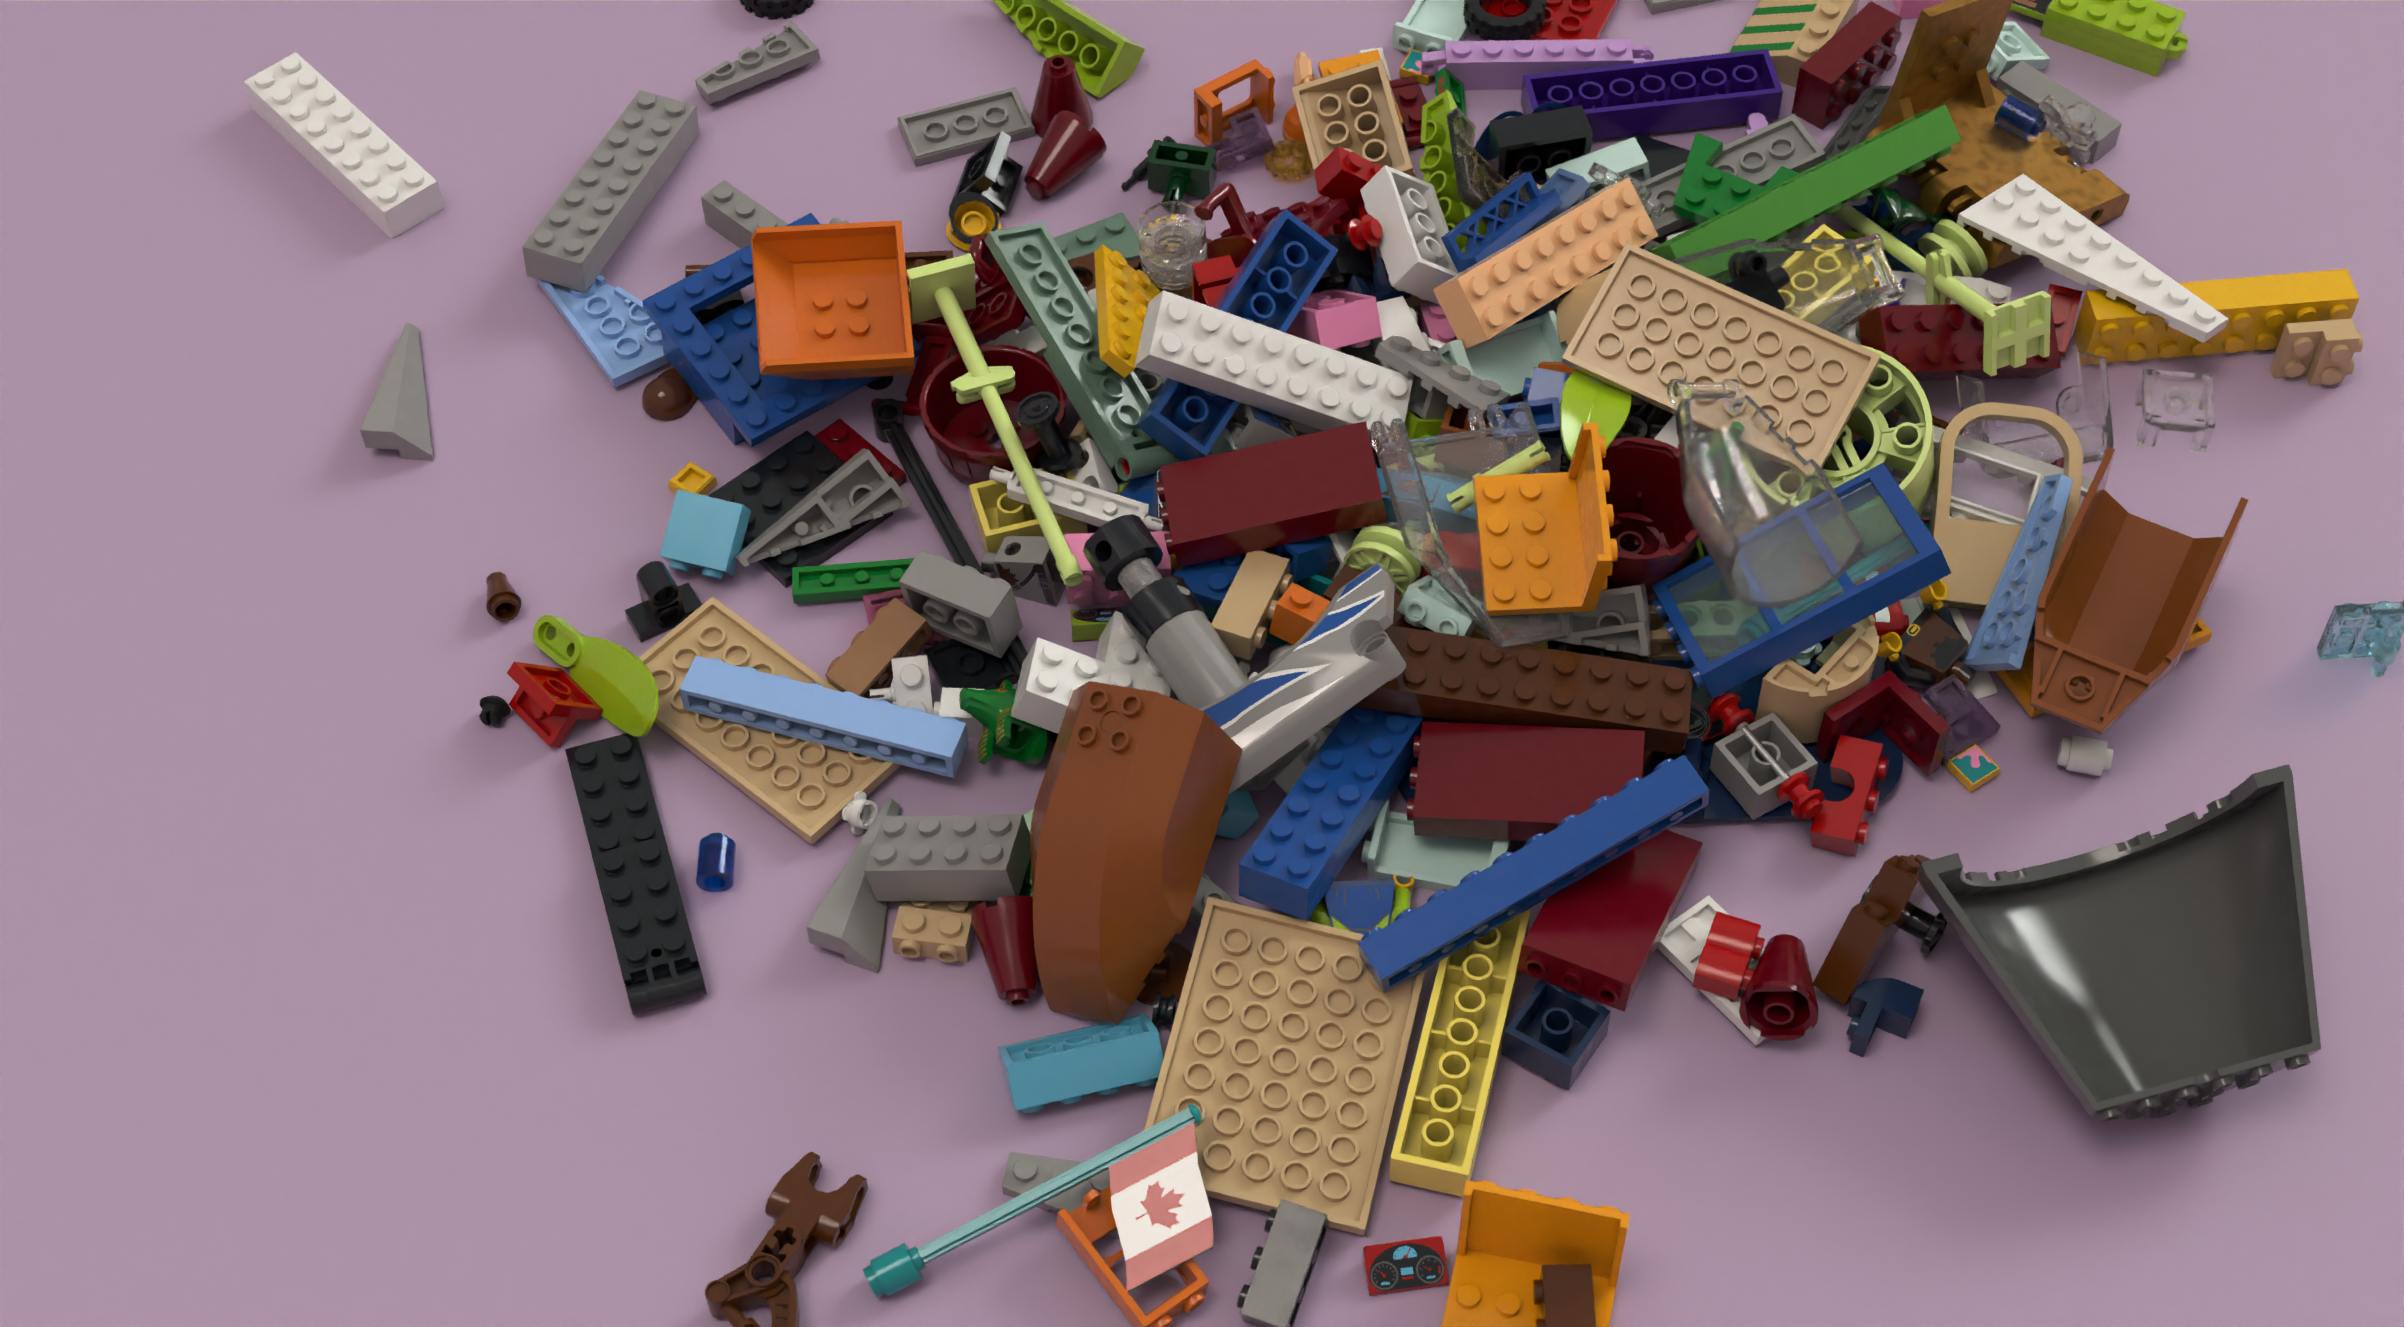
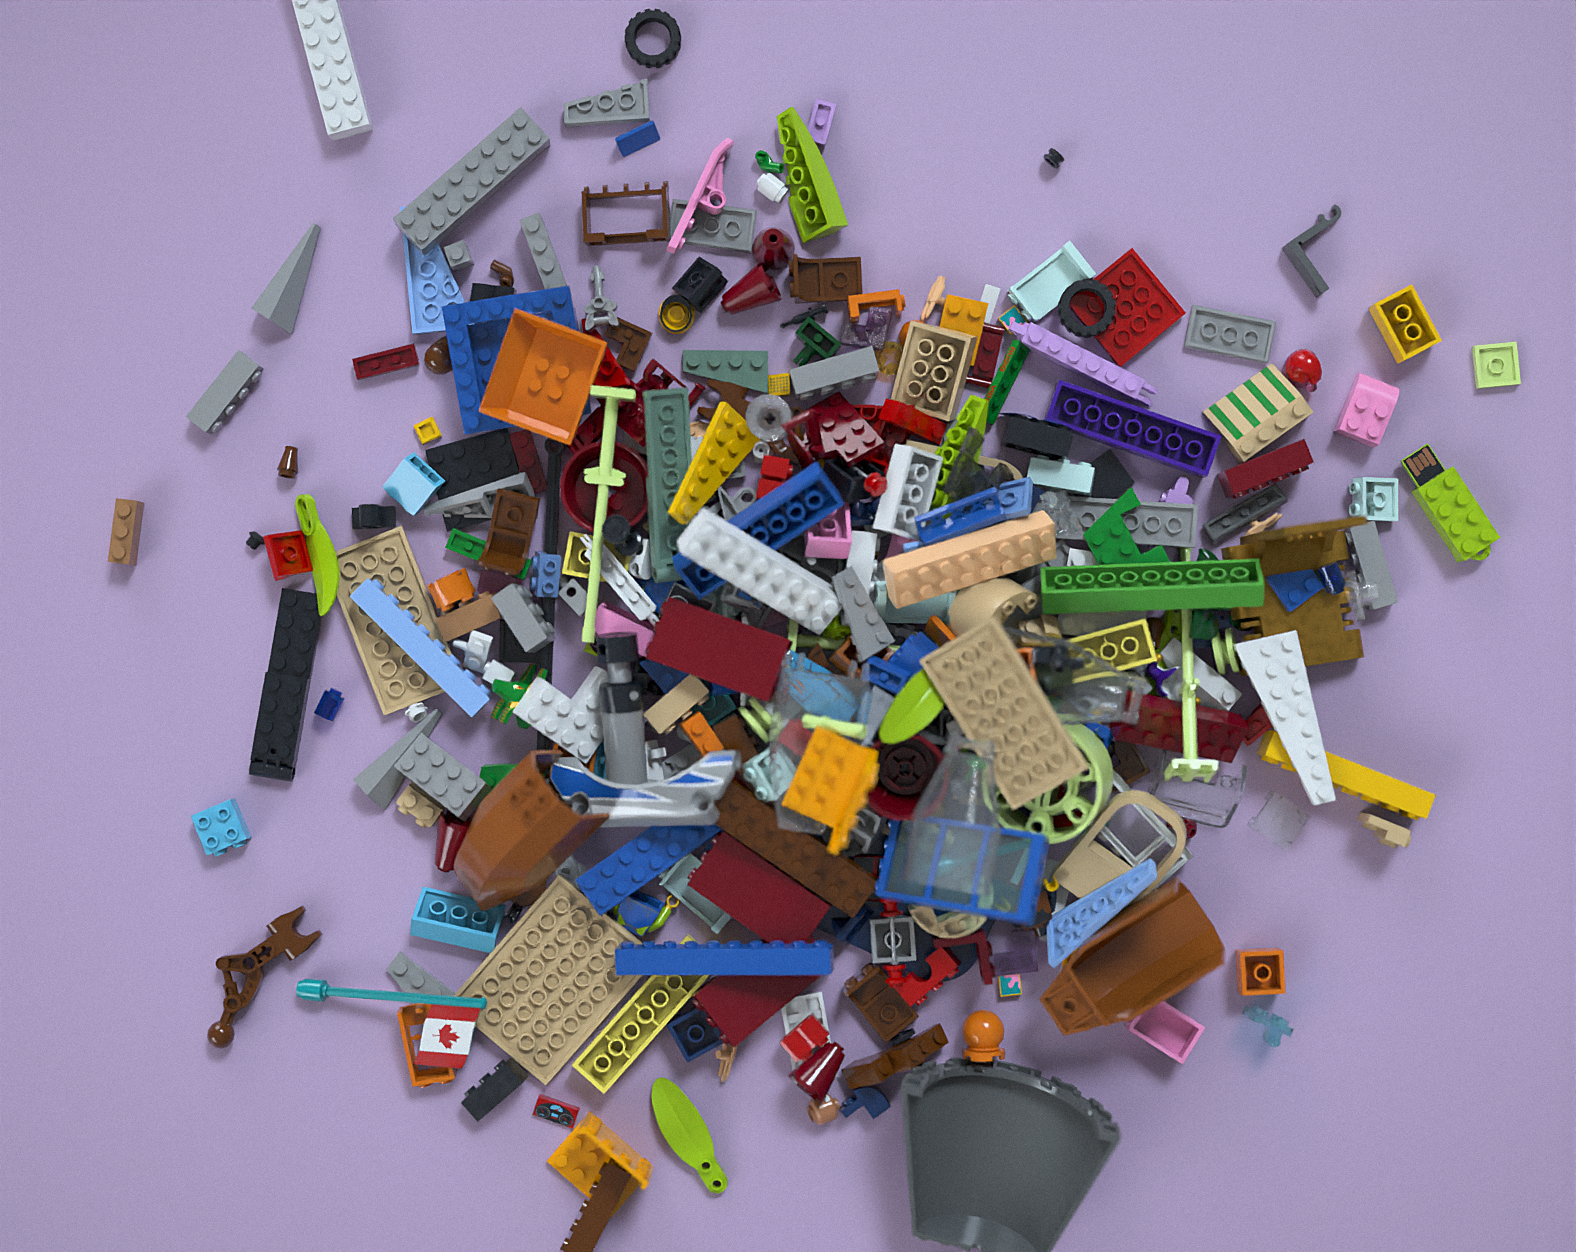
camera: 30 degrees right, 35 degrees up
(280, 777) = (126, 531): none -> medium nougat brick
(362, 553) = (225, 392): none -> light grey brick
(589, 428) = (386, 361): none -> dark red plate
(618, 1104) = (221, 827): none -> medium azure brick
(635, 273) = (458, 255): none -> light grey brick
(813, 78) = (637, 138): none -> blue slope
(821, 186) = (650, 235): none -> reddish brown hinge
(827, 629) = (451, 588): none -> orange brick
(880, 514) = (510, 532): none -> reddish brown bracket
(941, 87) = (708, 187): none -> bright pink piece
(962, 546) = (545, 575): none -> medium blue bracket
(999, 42) = (767, 164): none -> green arm
(1021, 57) = (772, 187): none -> white brick
(1145, 116) = (824, 279): none -> reddish brown bracket
(1250, 163) = (834, 373): none -> light grey brick
(1626, 1055) = (727, 1057): none -> light nougat piece
(1639, 1183) = (686, 1132): none -> lime plant
(1797, 867) = (879, 1002): none -> reddish brown bracket
(1825, 1053) = (823, 1112): none -> nougat head
(1985, 143) = (1294, 587): none -> blue wing
(1989, 833) = (983, 1034): none -> orange tile
(2230, 706) = (1167, 1030): none -> bright pink piece
(2300, 582) = (1260, 971): none -> orange brick

